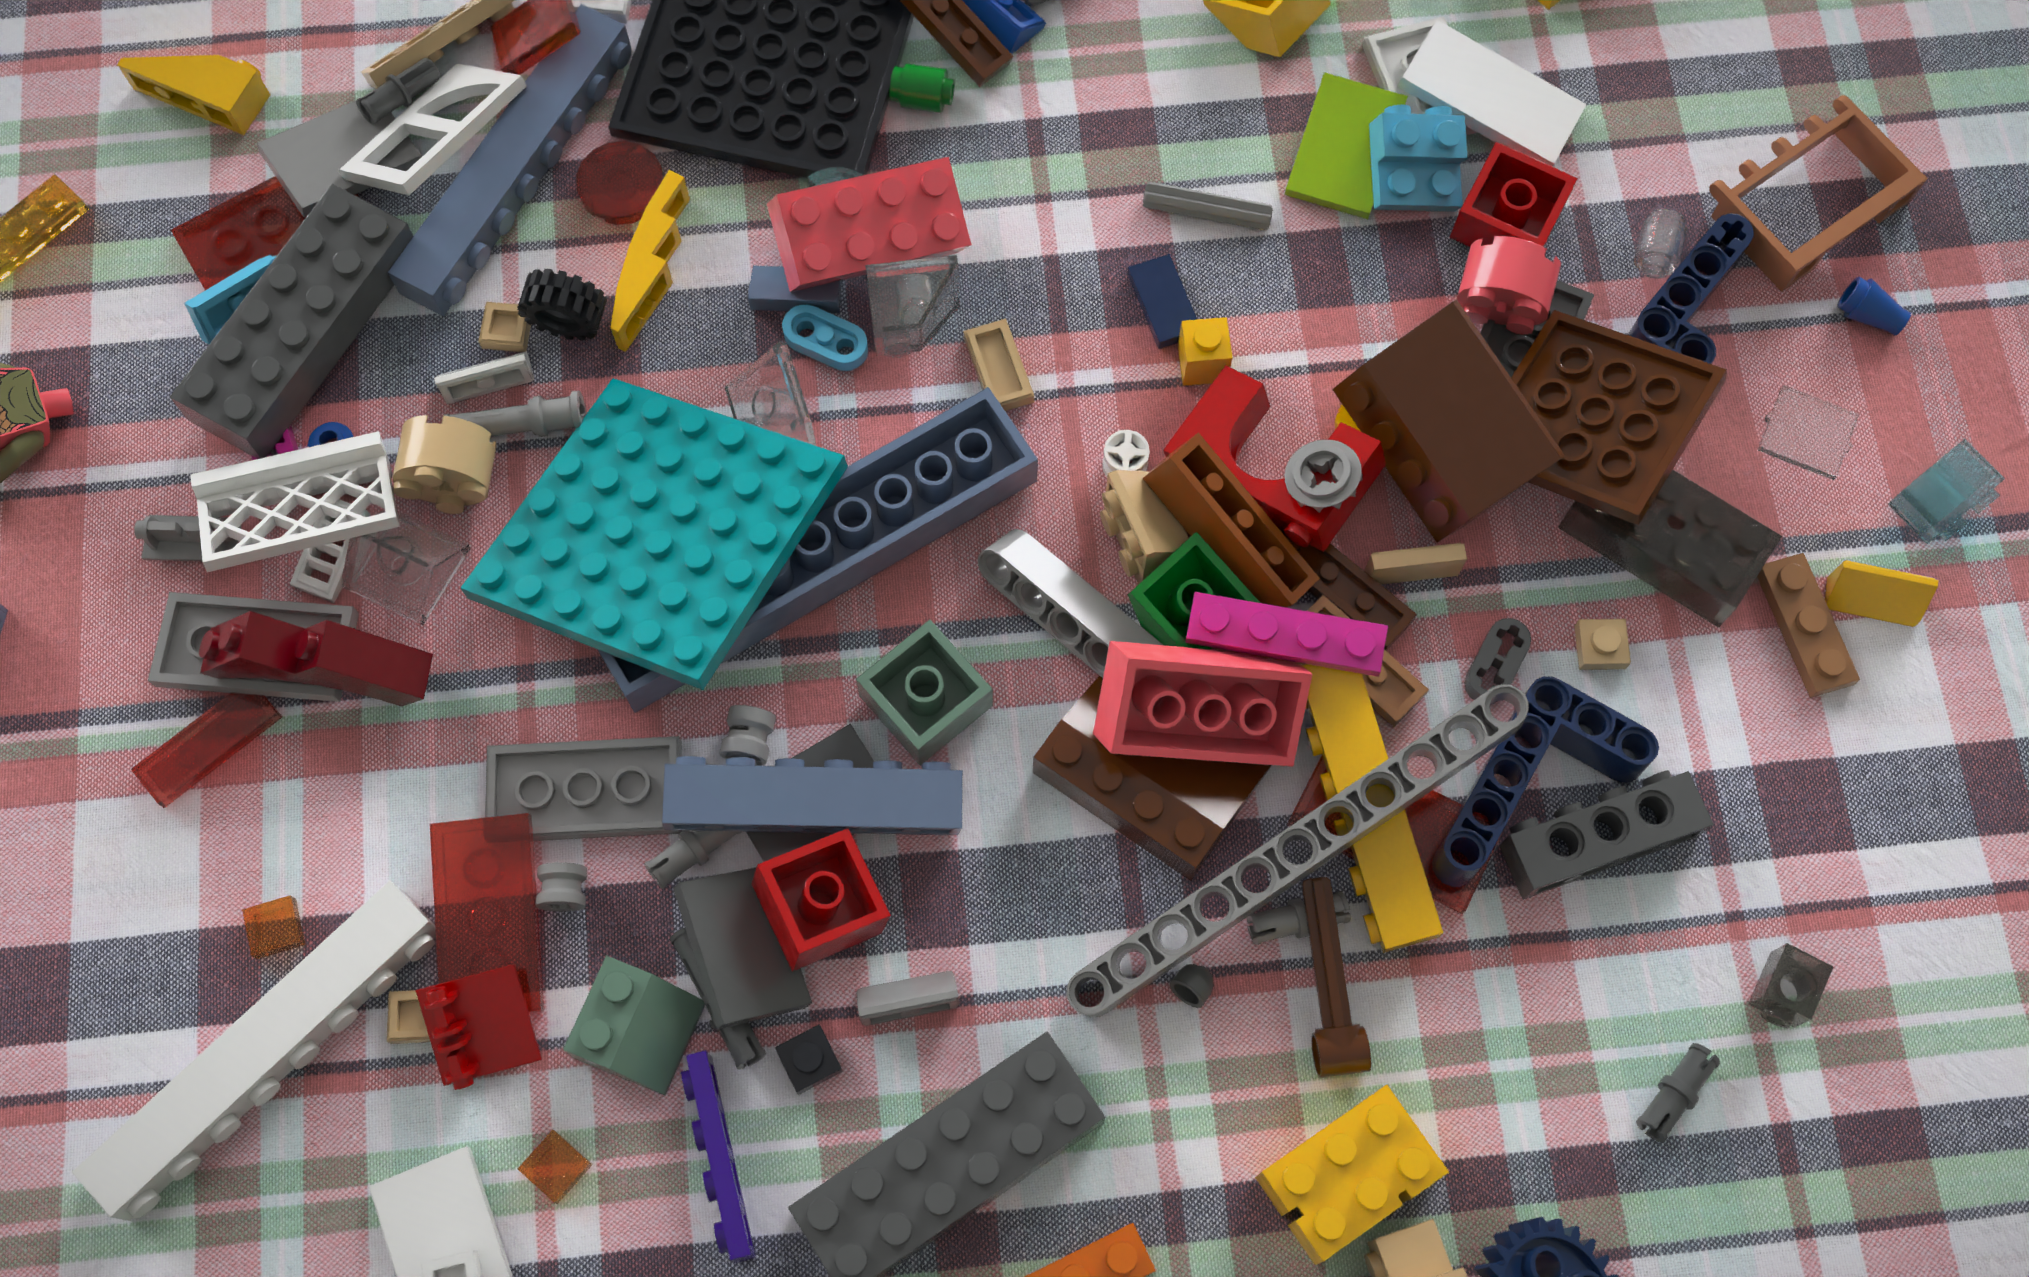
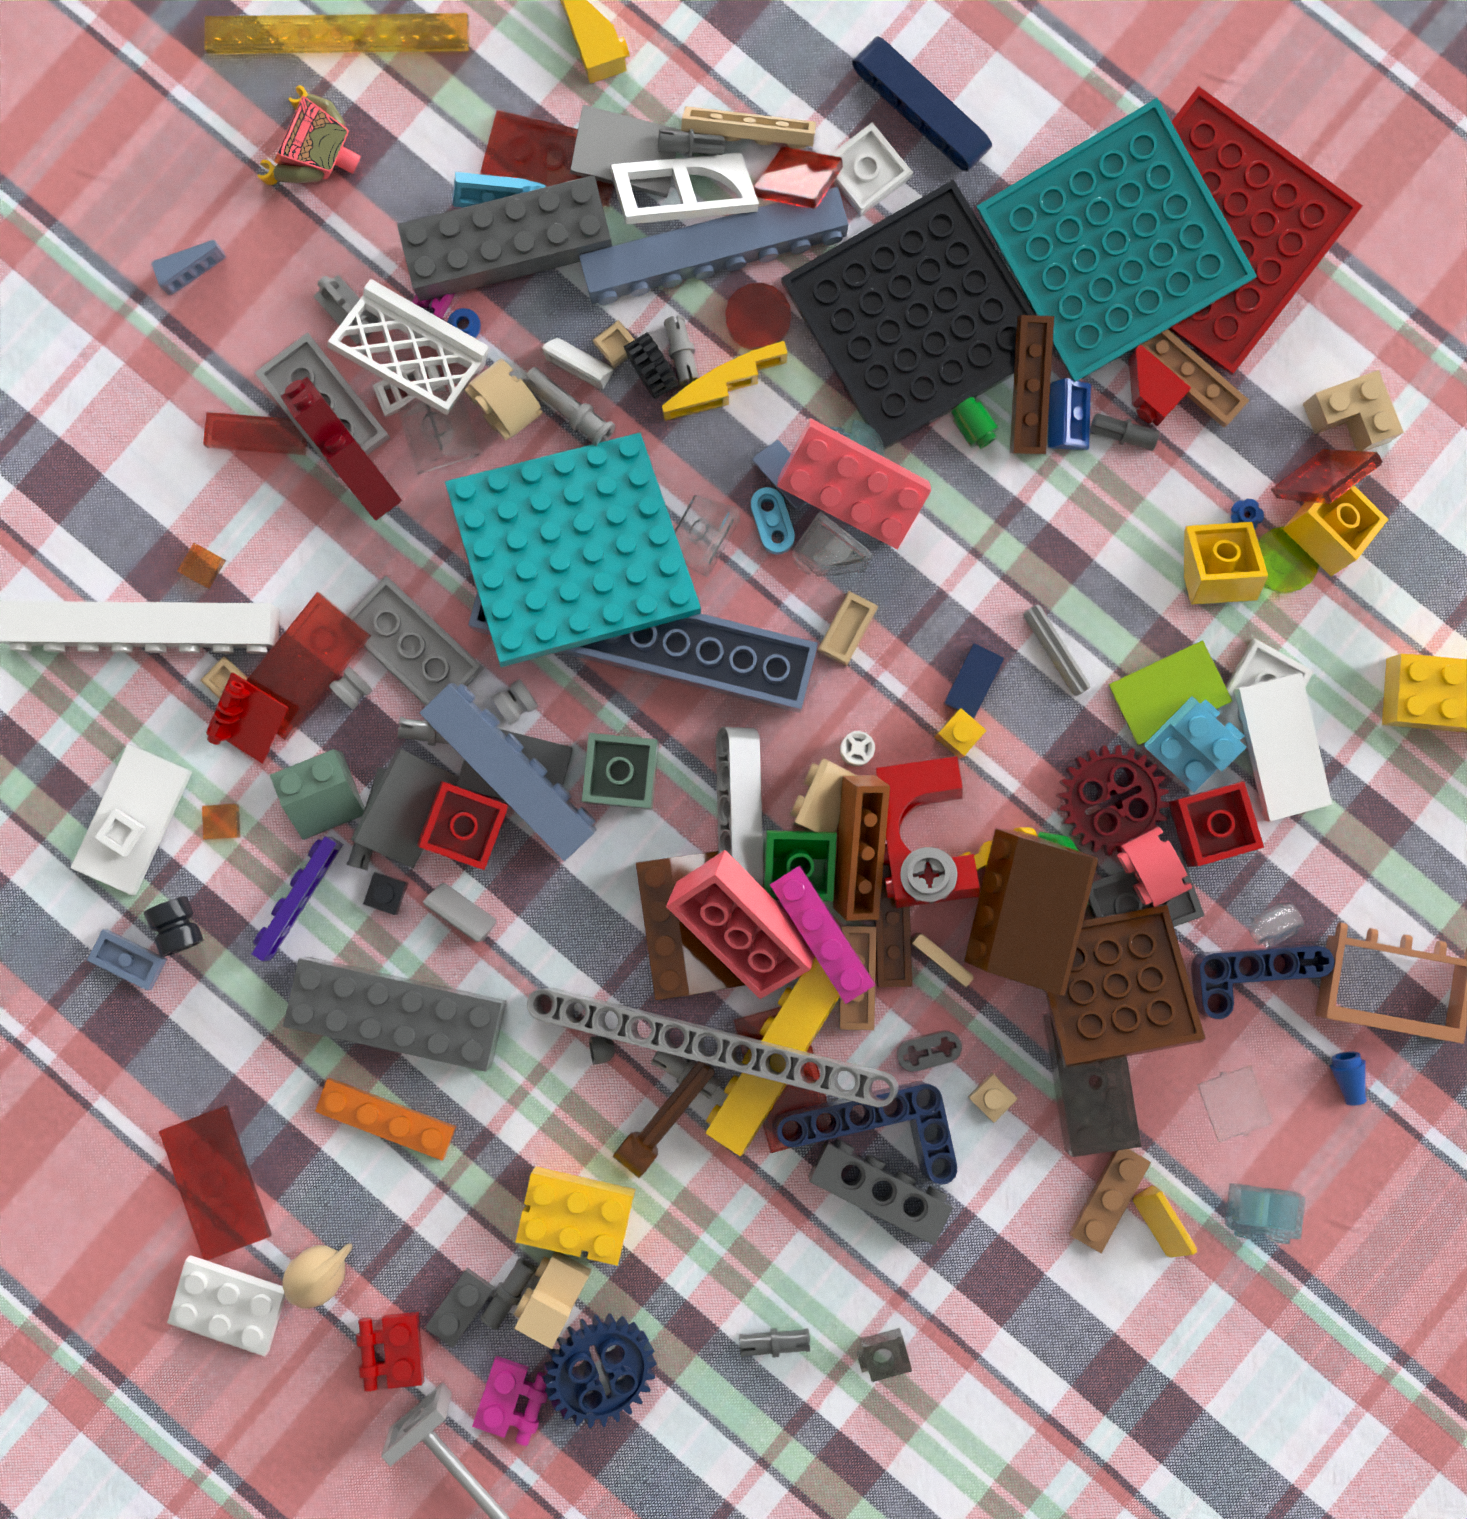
camera: 50 degrees right, 15 degrees up
(579, 265) = (681, 350): none -> light grey pin
(1362, 265) = (1101, 774): none -> dark red gear

